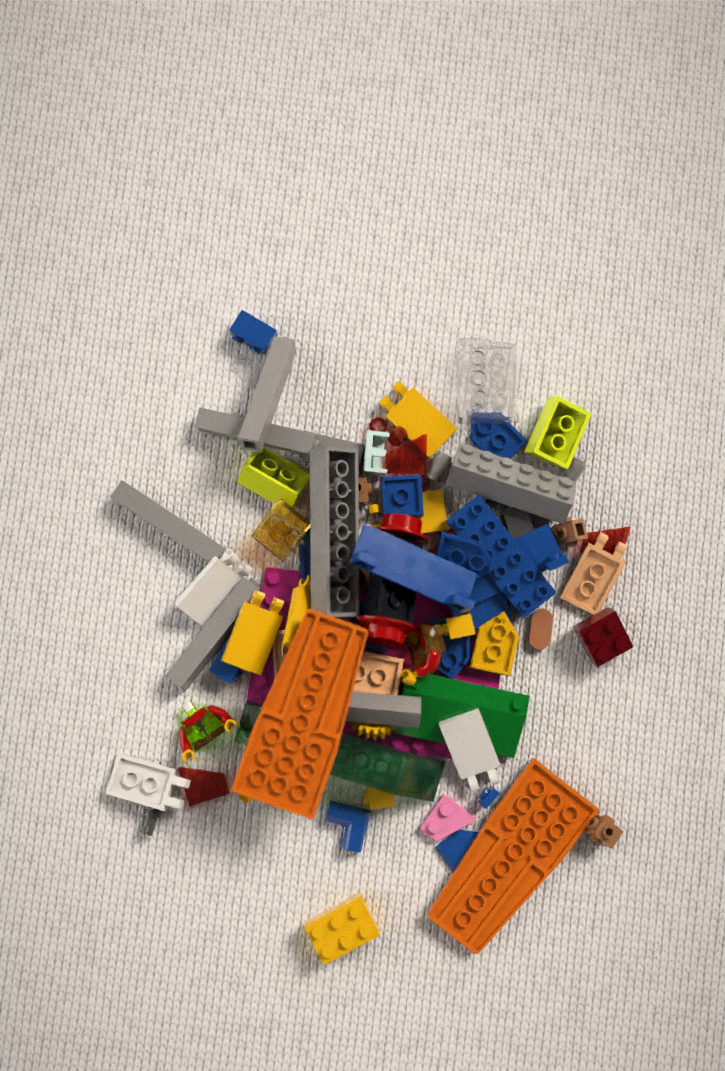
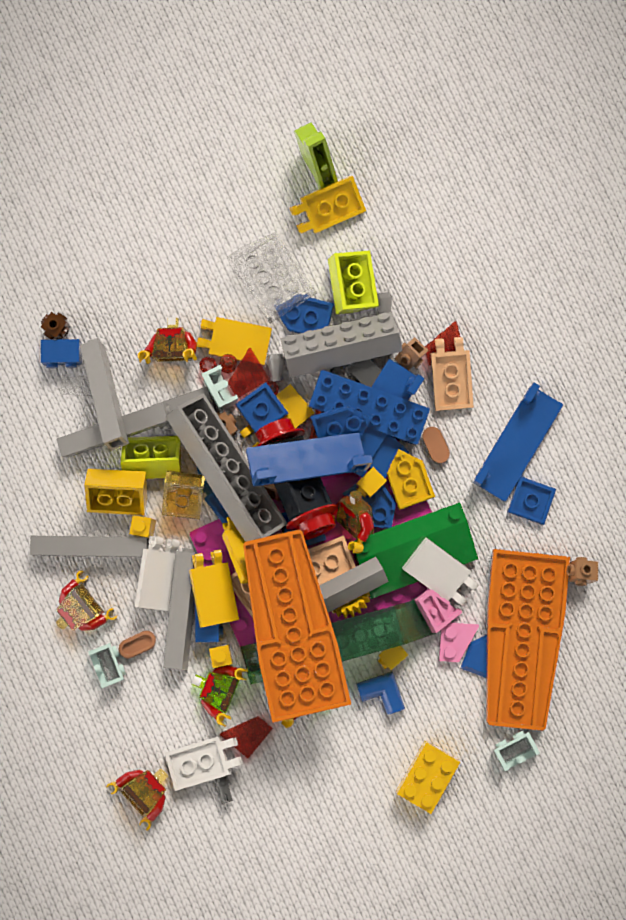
camera: 30 degrees left, 0 degrees up
(76, 776) = (143, 792): none -> torso
(116, 640) = (106, 665): none -> window
(124, 573) = (79, 608): none -> torso
(155, 639) = (137, 644): none -> nougat tile
(223, 488) = (116, 491): none -> yellow brick
(224, 697) = (221, 656): none -> yellow brick
(227, 535) = (142, 526): none -> yellow brick
(266, 311) = (61, 329): none -> reddish brown brick
(355, 386) = (170, 344): none -> torso
(438, 956) = (516, 750): none -> light aqua window
(445, 781) = (436, 610): none -> bright pink wing
(487, 796) = (476, 601): blue plate -> none
(580, 350) = (329, 205): none -> yellow tile
(596, 299) = (316, 154): none -> lime brick
(596, 735) = (531, 500): none -> blue tile
(599, 685) = (518, 443): none -> blue bracket
(603, 636) = (488, 420): dark red brick -> none

